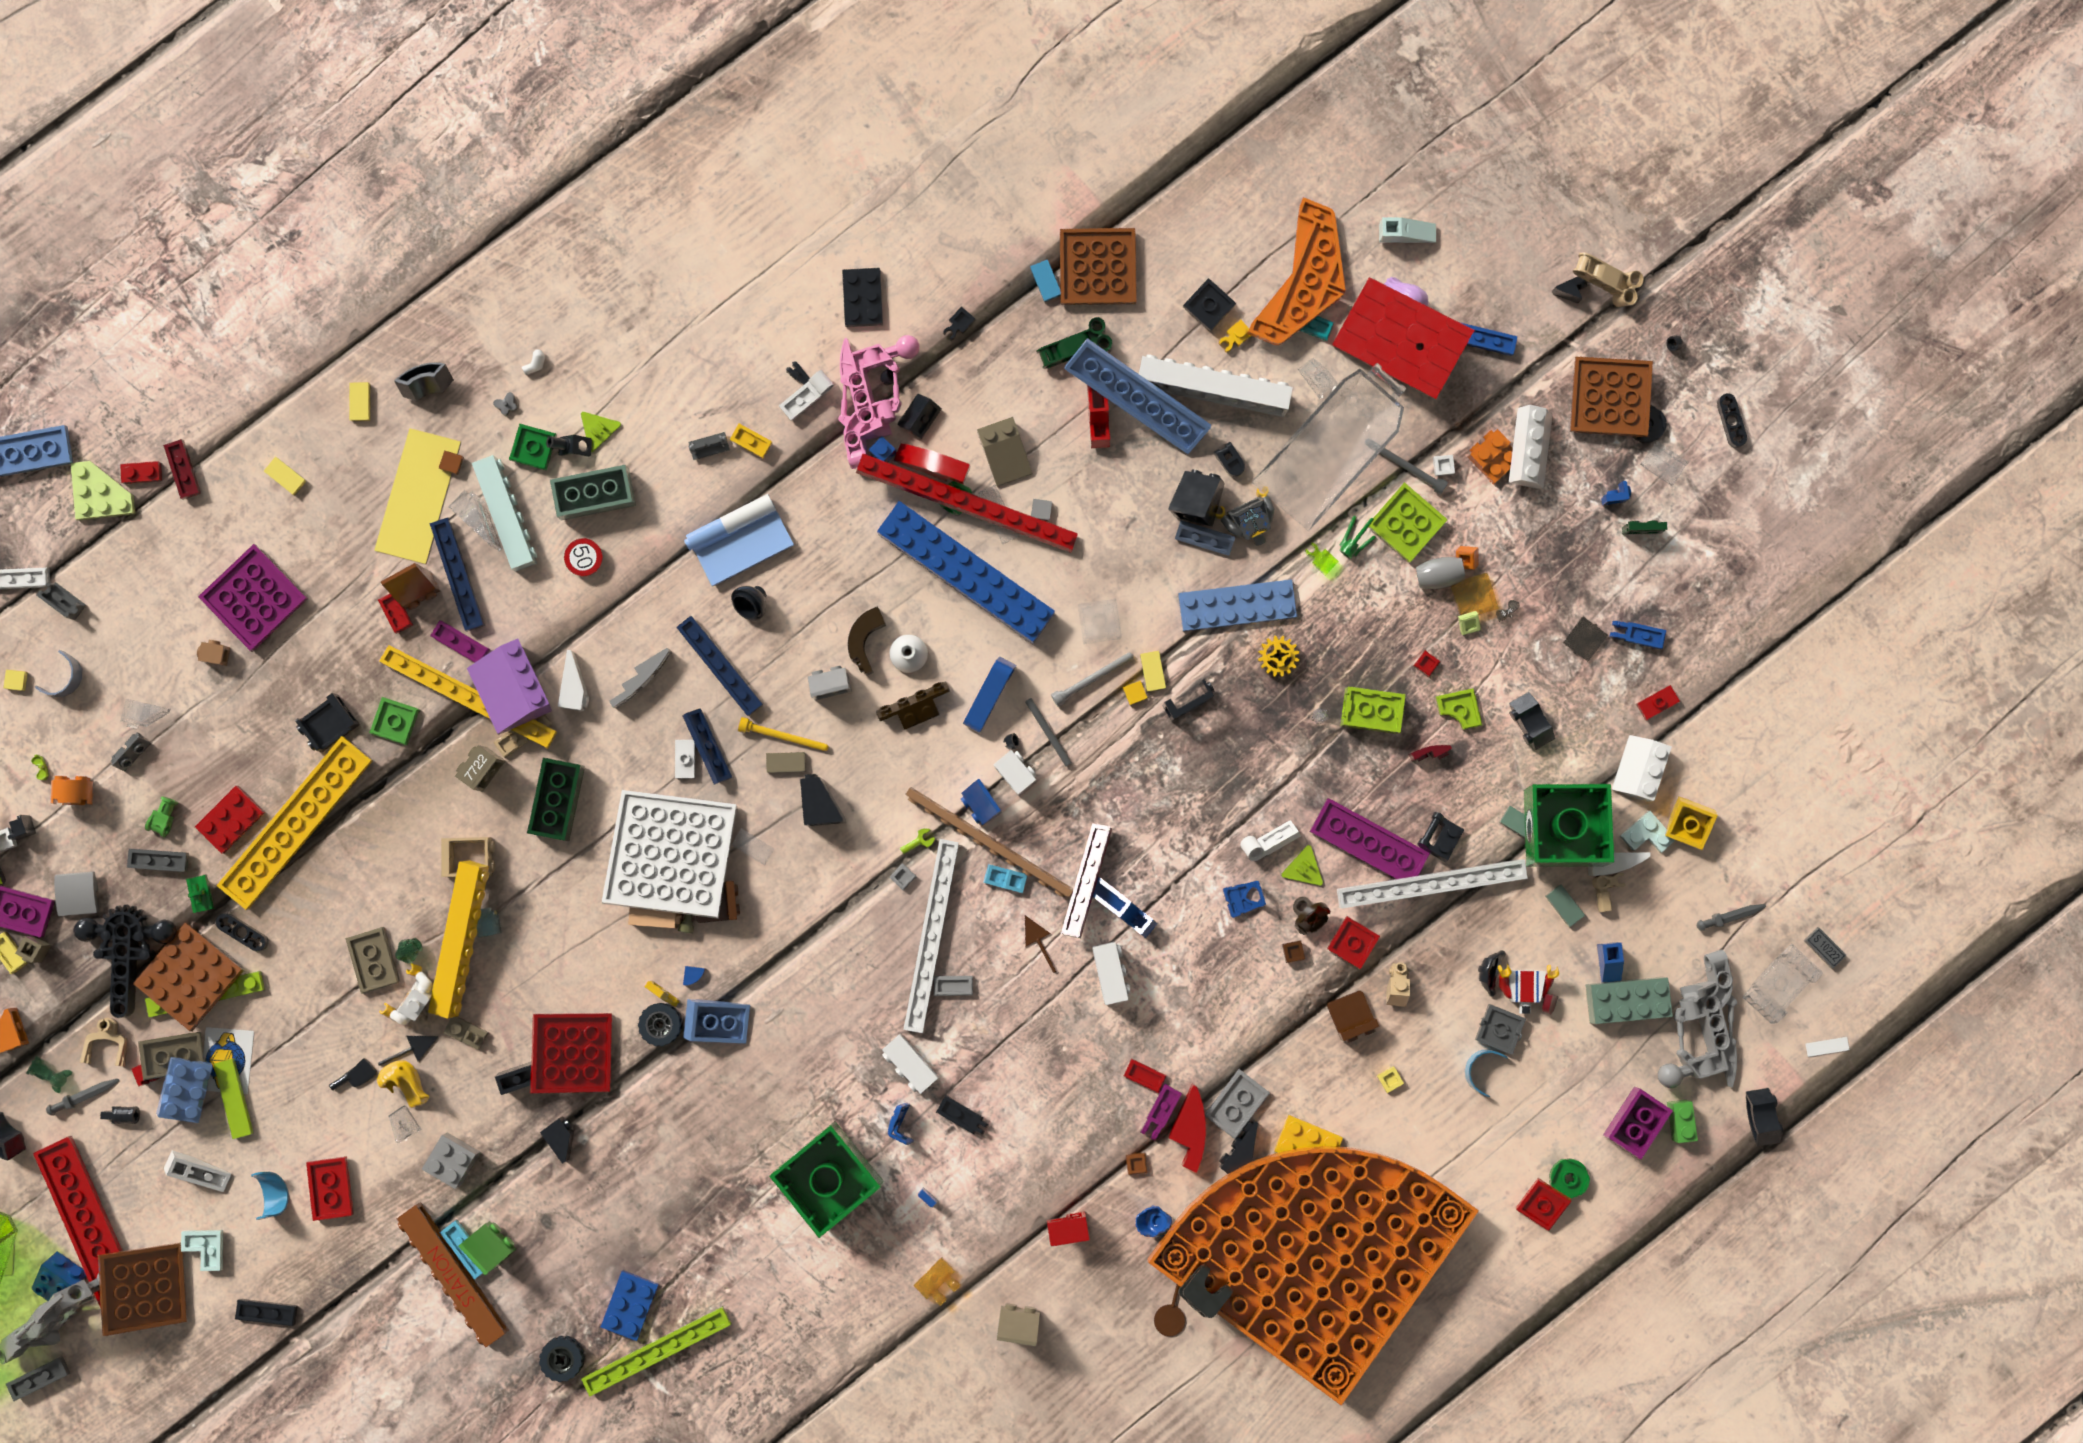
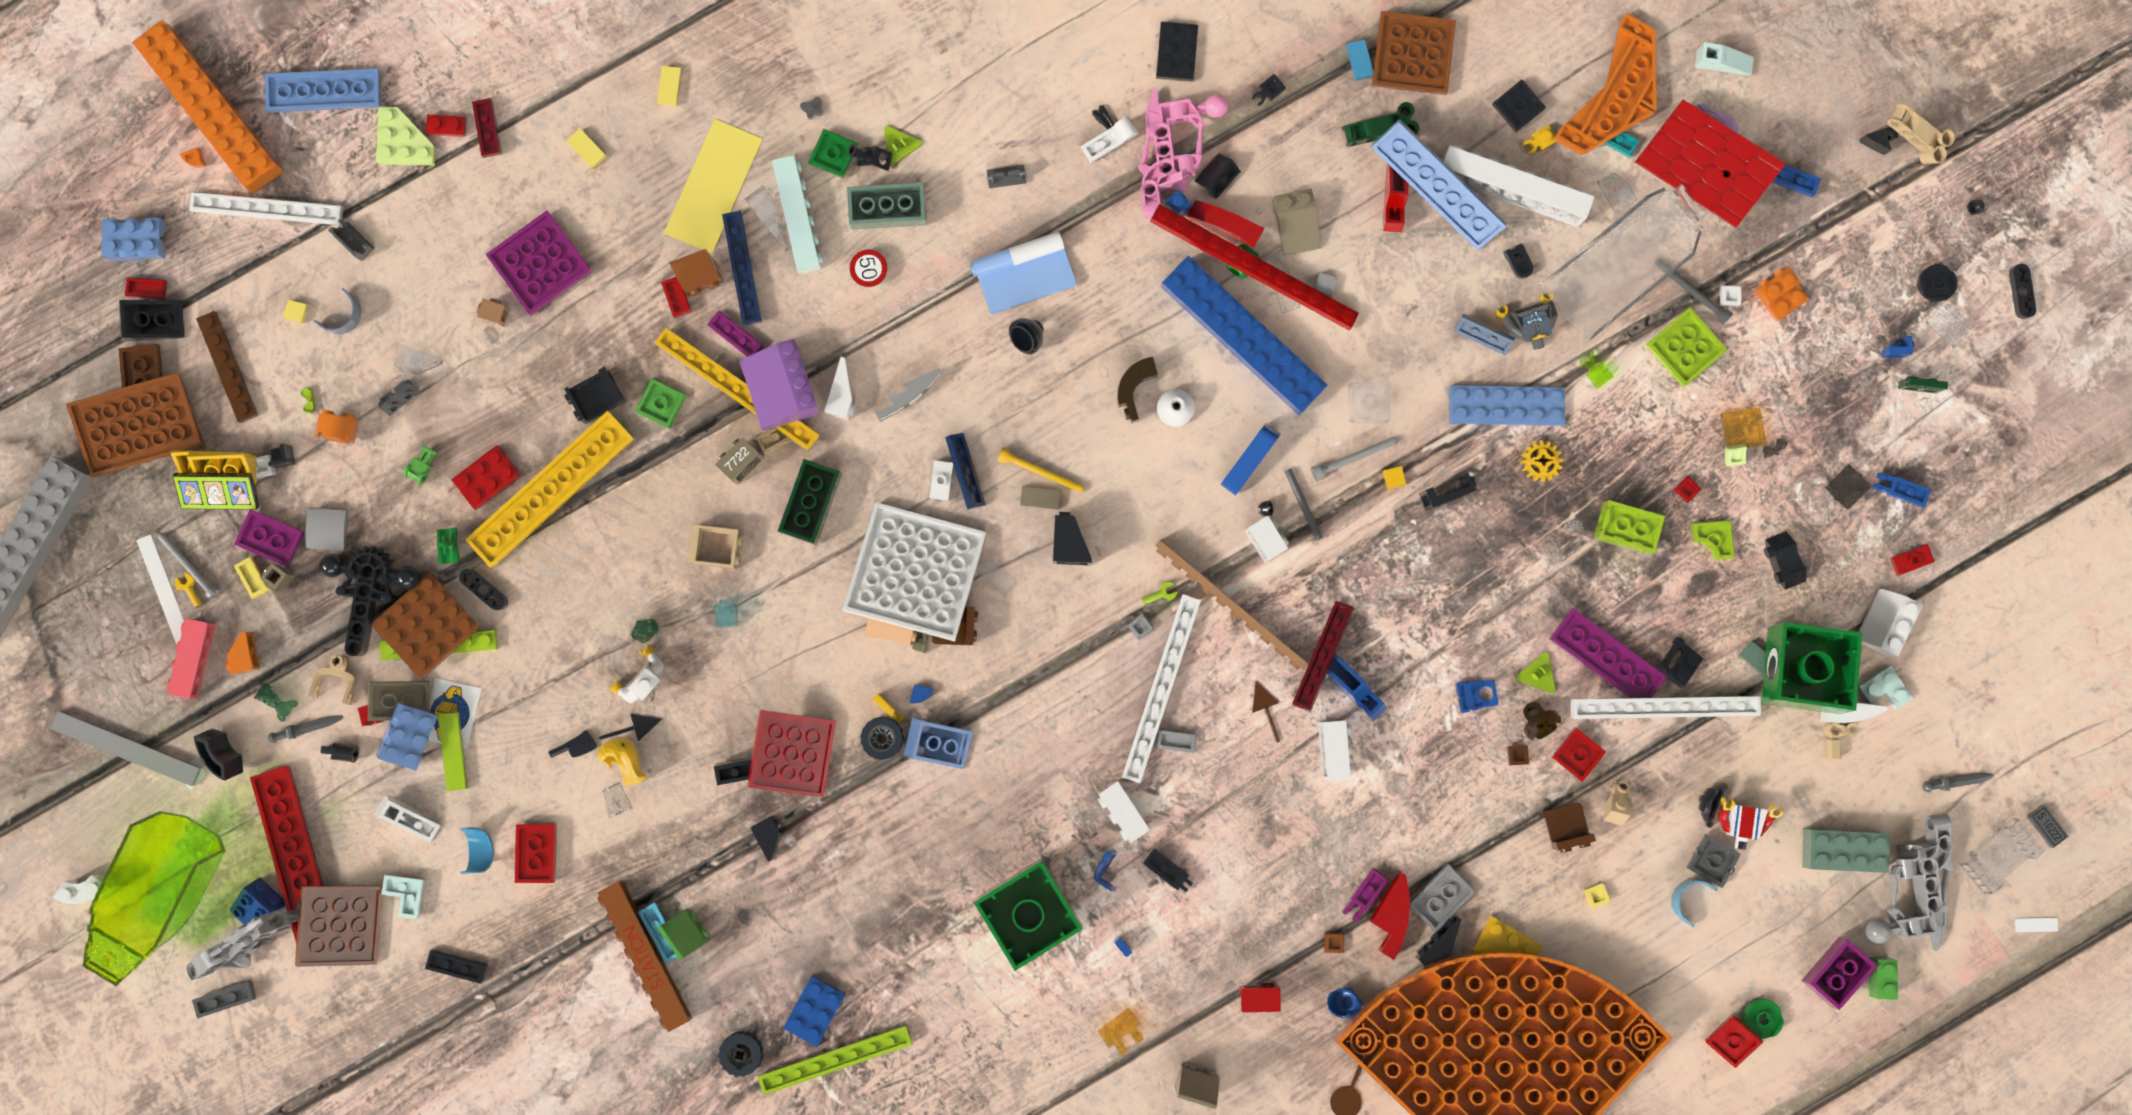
camera: 10 degrees right, 0 degrees up
(157, 860) = (410, 507): dark grey plate -> none
(372, 960) = (607, 635): dark tan tile -> none
(424, 380) = (736, 73): black brick -> none
(451, 462) = (751, 157): dark orange tile -> none
(451, 1160) = (658, 843): light grey brick -> none
(458, 939) = (696, 626): yellow brick -> none
(466, 1032) = (689, 719): dark tan plate -> none
(536, 363) = (848, 71): white arm -> none
(719, 666) = (988, 393): dark blue plate -> none
(751, 440) = (1048, 177): yellow plate -> none
(829, 683) = (1094, 425): light grey slope -> none
(887, 377) = (1191, 133): black hinge -> none
(915, 708) = (1176, 462): dark brown bracket -> none
(981, 802) = (1229, 563): blue slope -> none
(1005, 878) = (1241, 642): medium azure slope -> none
(1144, 1075) = (1353, 856): red tile -> none
(1152, 671) = (1414, 458): light yellow tile -> none
(1197, 497) = (1483, 293): black slope -> none
(1197, 1296) = (1381, 1081): pearl dark grey piece -> none
(1270, 842) = (1509, 643): white plate -> none
(1349, 547) = (1626, 364): green plant -> none
(1435, 751) = (1688, 577): dark red slope -> none
(1440, 573) = (1714, 401): light grey piece -> none
(1469, 556) = (1741, 390): orange slope -> none
(1530, 446) = (1819, 288): white slope -> none
(1549, 1003) = (1765, 843): dark red tile -> none
(1565, 905) = (1793, 748): sand green tile -> none
(1610, 961) = (1833, 809): blue slope -> none
(1611, 396) = (1906, 251): dark orange plate -> none
(1691, 822) = (1931, 683): yellow slope -> none
(1763, 1117) = (1965, 985): black brick -> none

